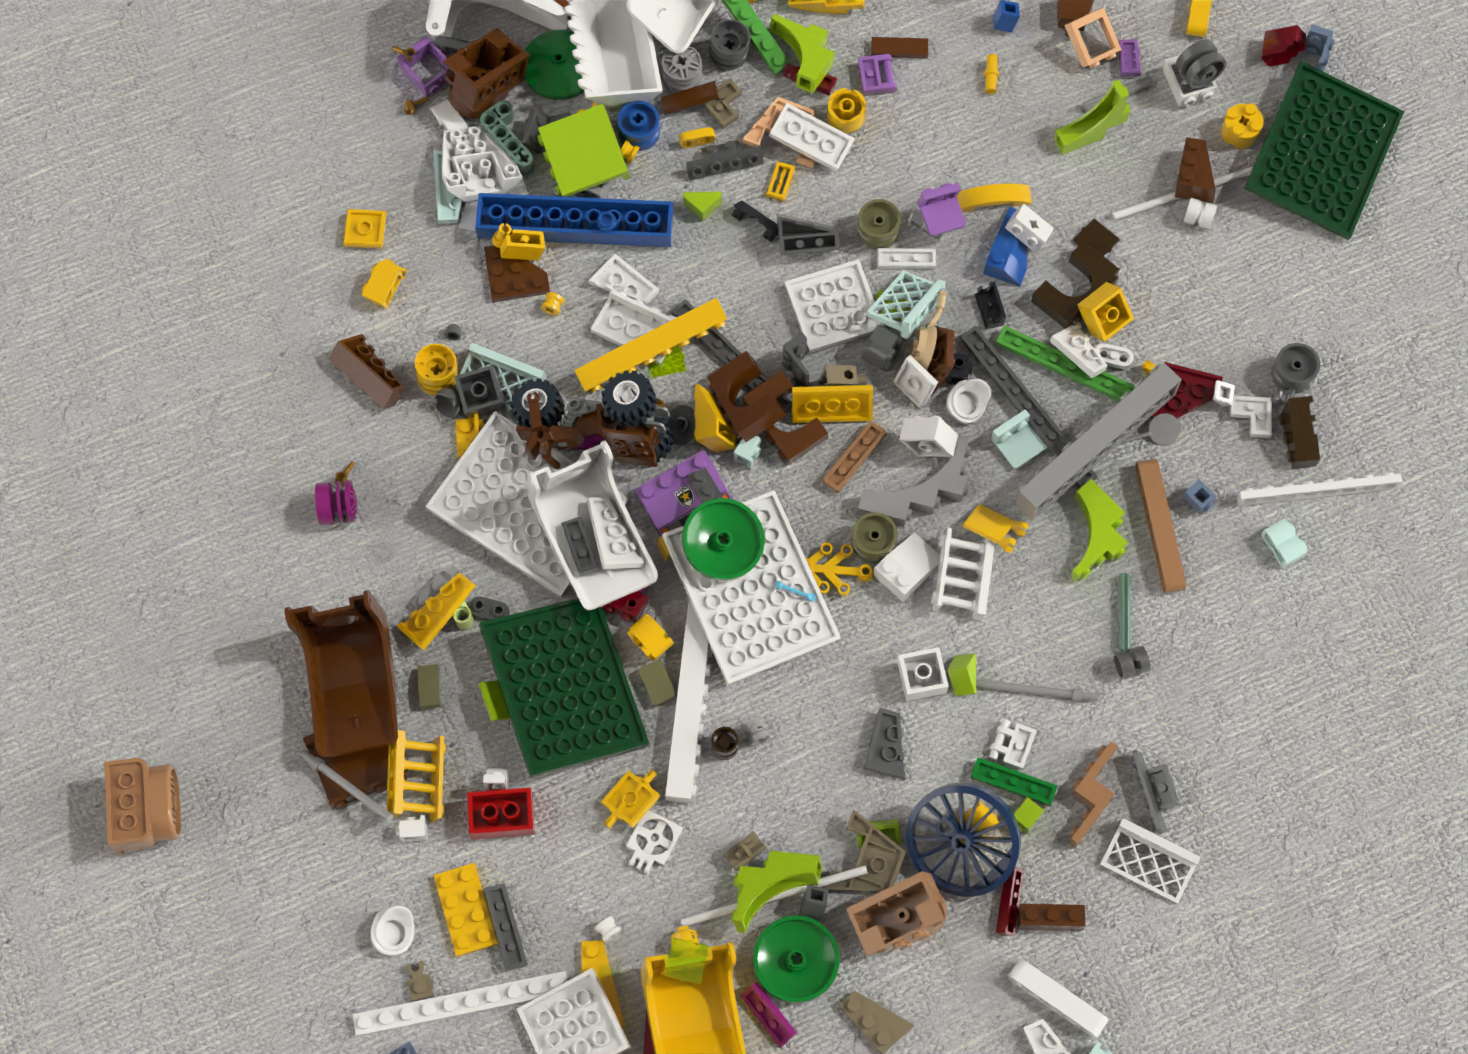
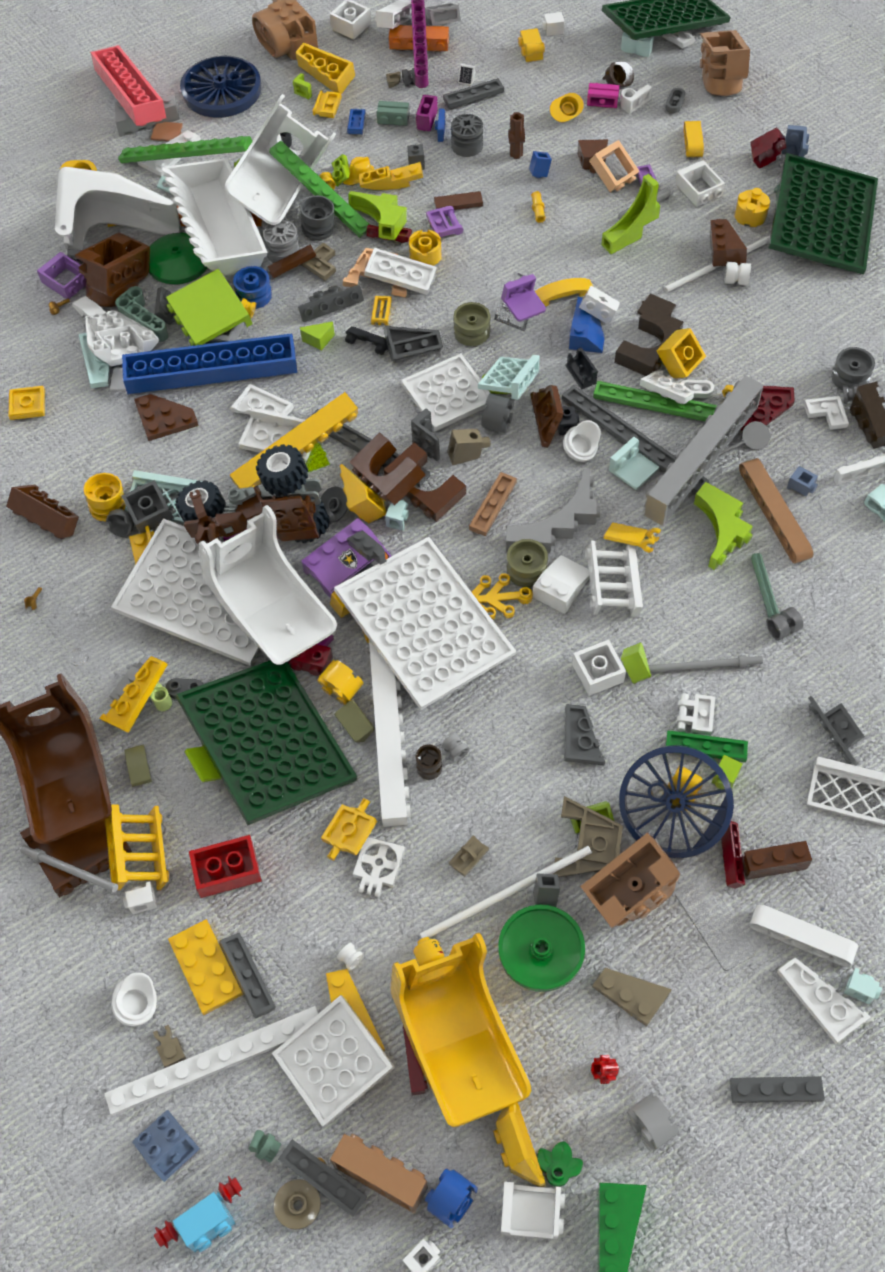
camera: 10 degrees left, 10 degrees down
(336, 502) = (22, 622): magenta wheel -> none
(383, 282) = (48, 440): yellow hinge -> none
(405, 52) = (46, 264): pearl gold hand -> none
(453, 332) = (116, 468): dark grey hinge -> none
(496, 779) = (215, 834): white plate -> none
(519, 244) = (164, 387): yellow hinge -> none
(552, 303) = (201, 430): yellow wheel -> none
(580, 546) = (260, 614): dark grey tile -> none
(606, 221) = (237, 355): blue plate -> none
(611, 536) = (288, 601): white wing -> none
(686, 960) = (436, 961): clear neon green piece -> none
(697, 137) = (303, 289): yellow beam -> none
(723, 539) = (391, 580): green dish -> none
(768, 1014) = (526, 1008): magenta plate -> none
(780, 873) = (505, 871): lime arch -> none
(811, 597) = (481, 620): medium azure hinge -> none
(832, 403) = (464, 462): yellow plate -> none
(906, 258) = (501, 348): white tile -> none
(915, 382) = (532, 434): white plate -> none
(923, 346) = (533, 400): tan piece -> none
(928, 436) = (555, 472): white brick -> none
(1092, 793) = (781, 743): medium nougat bracket -> none
(1201, 63) = (708, 163): dark grey wheel -> none
(1223, 393) = (799, 398): white slope -> none

